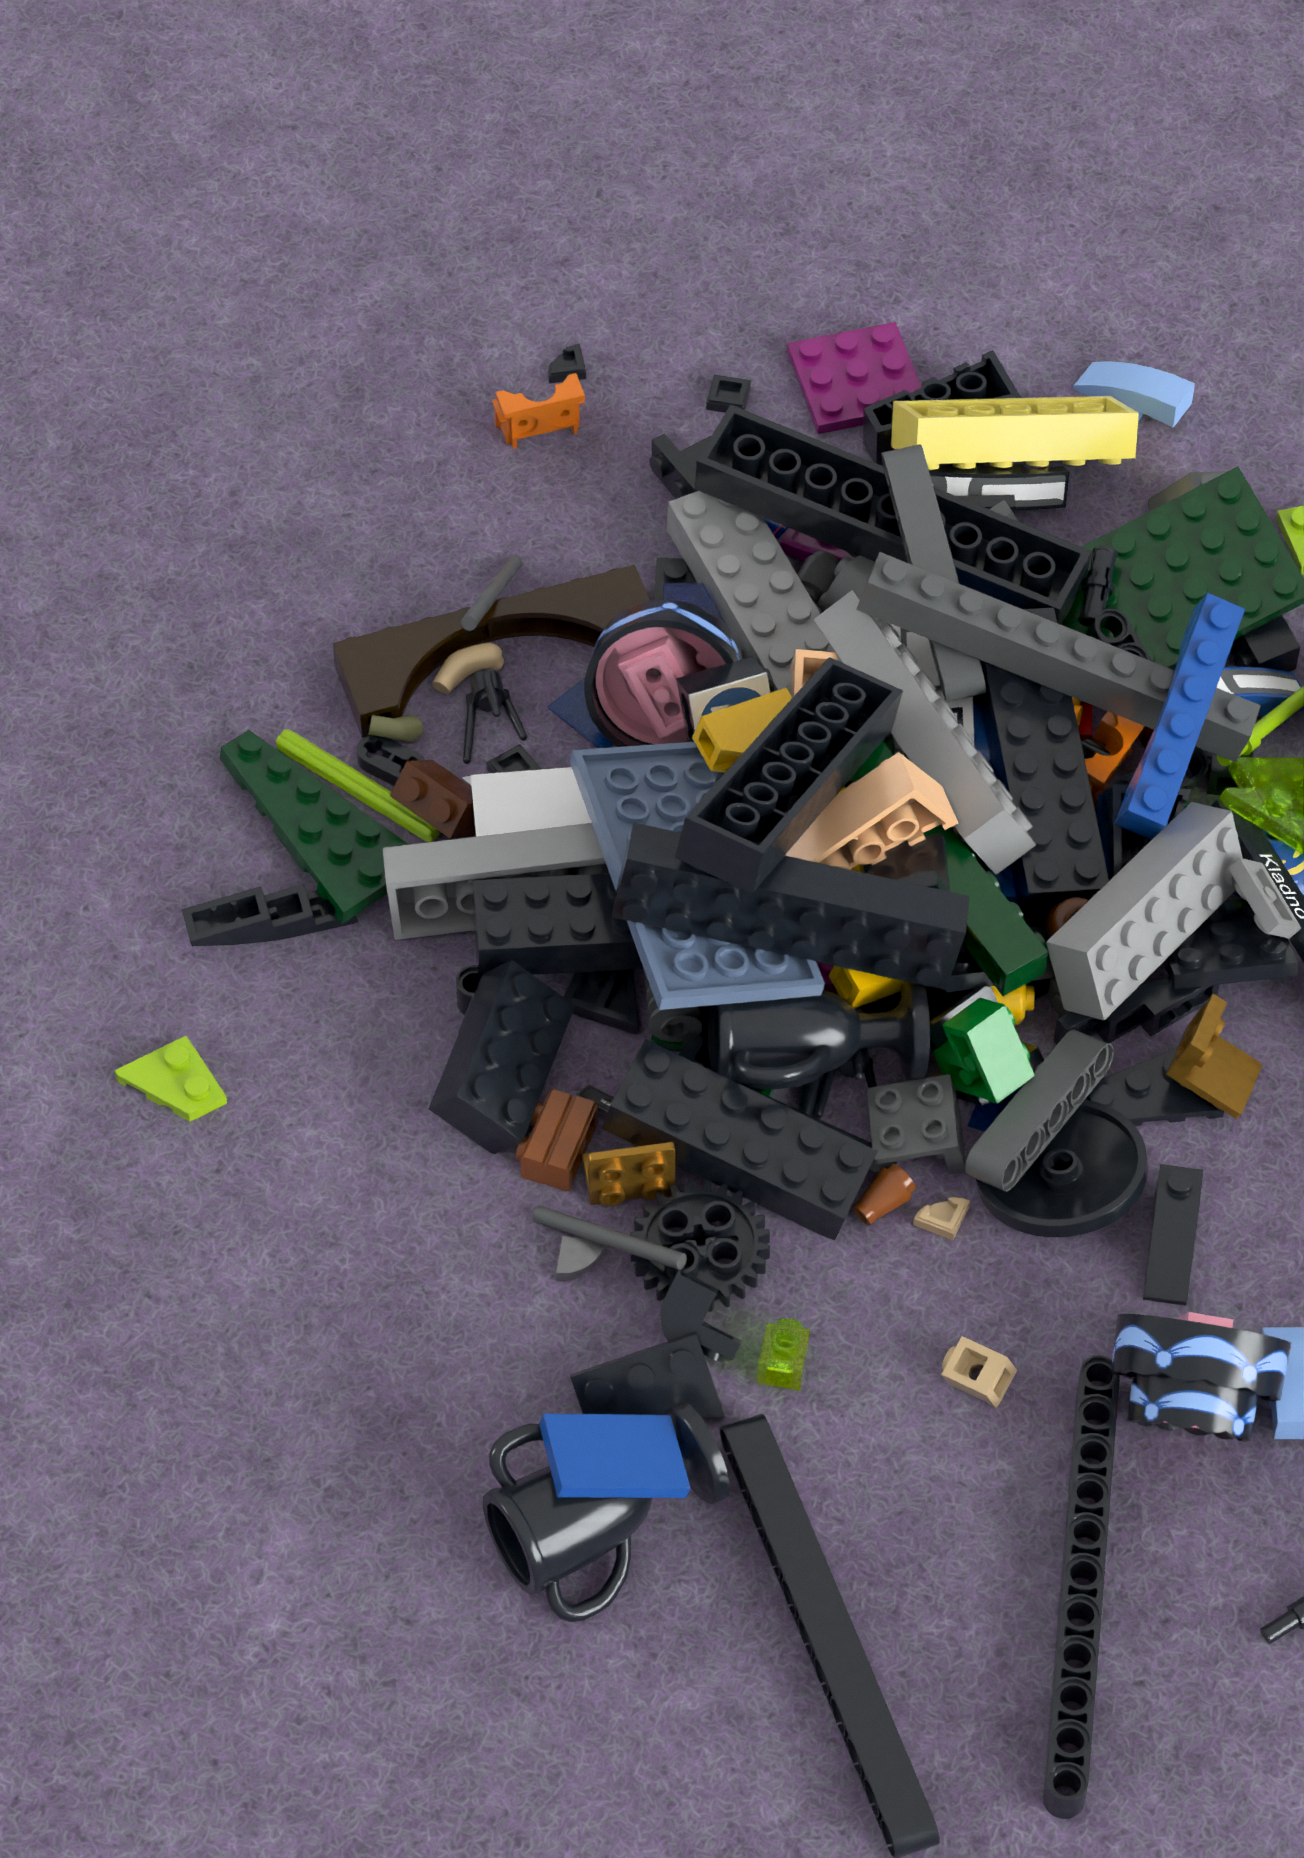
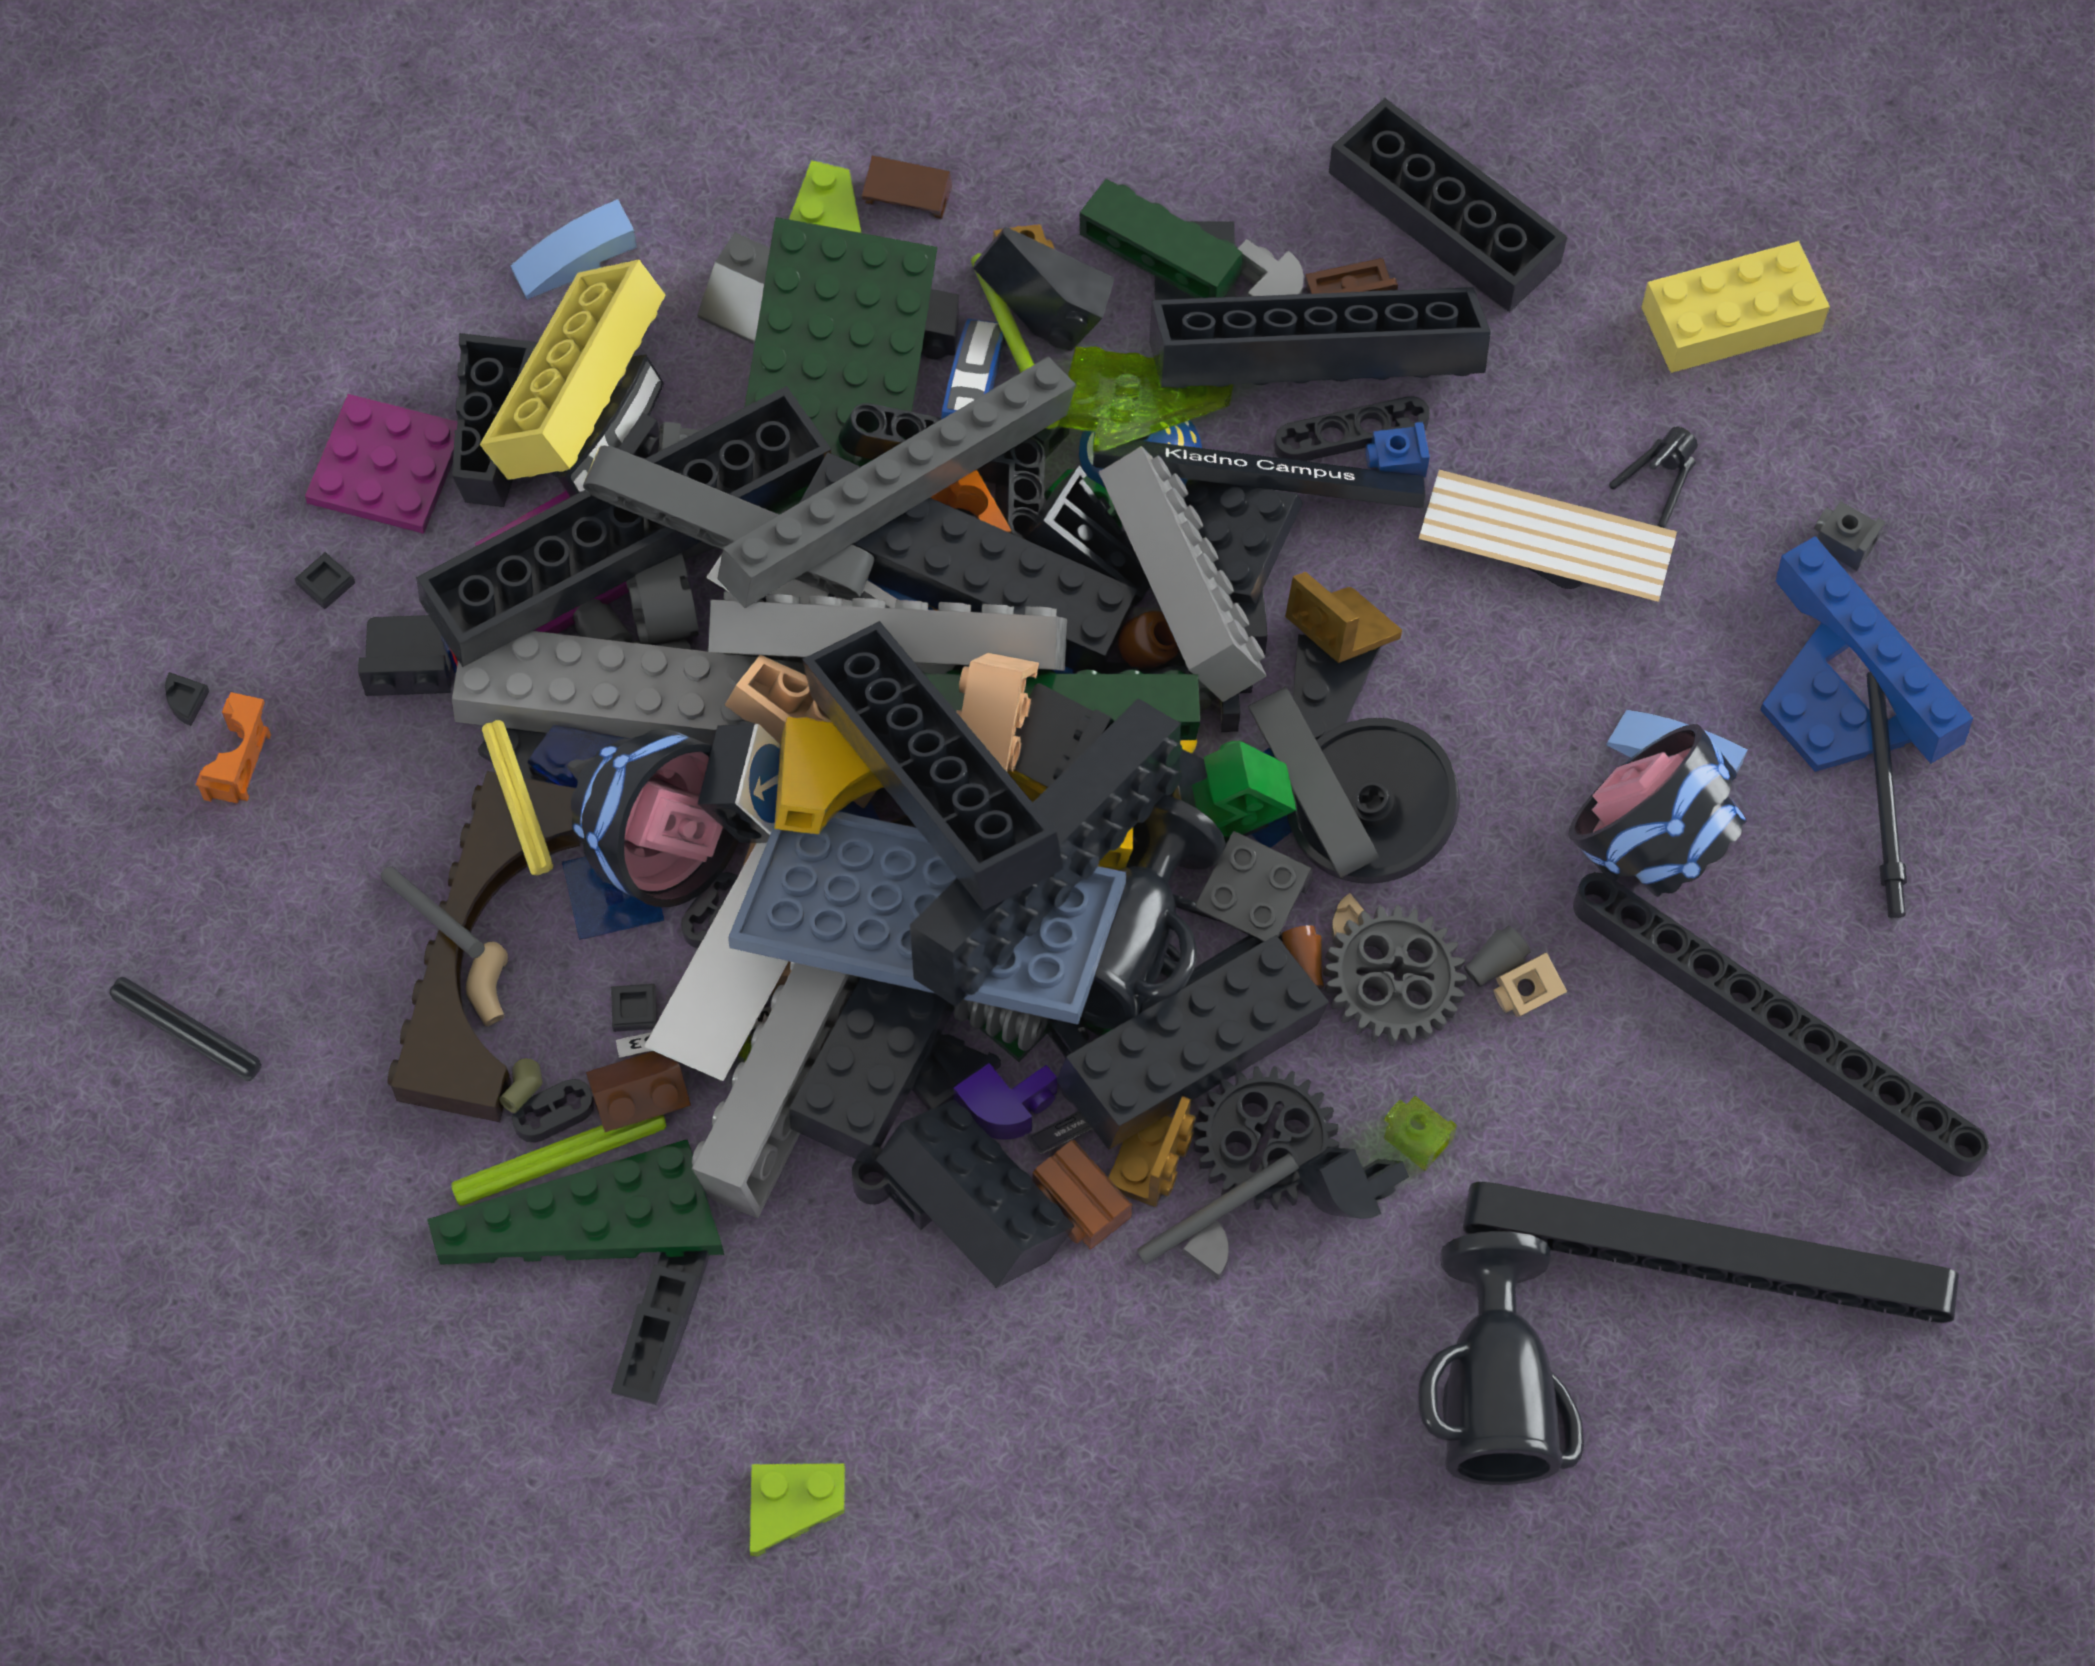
camera: 60 degrees left, 10 degrees up
(301, 508) = (185, 1028): none -> black axle
(488, 696) = (536, 981): black plant -> none
(597, 1045) = (1002, 1110): none -> dark purple brick
(614, 1456) = (1492, 1326): blue tile -> none
(622, 591) = (517, 798): none -> light yellow axle
(650, 1381) = (1387, 1259): black wing -> none
(948, 1251) = (1395, 1012): none -> dark grey gear
(995, 1334) = (1498, 955): none -> dark grey cone
(1098, 584) = (821, 418): black pin -> none
(1172, 743) = (1074, 482): blue arch -> none
(1173, 1234) = (1485, 754): black slope -> none
(1265, 899) = (1237, 482): light grey plate -> none

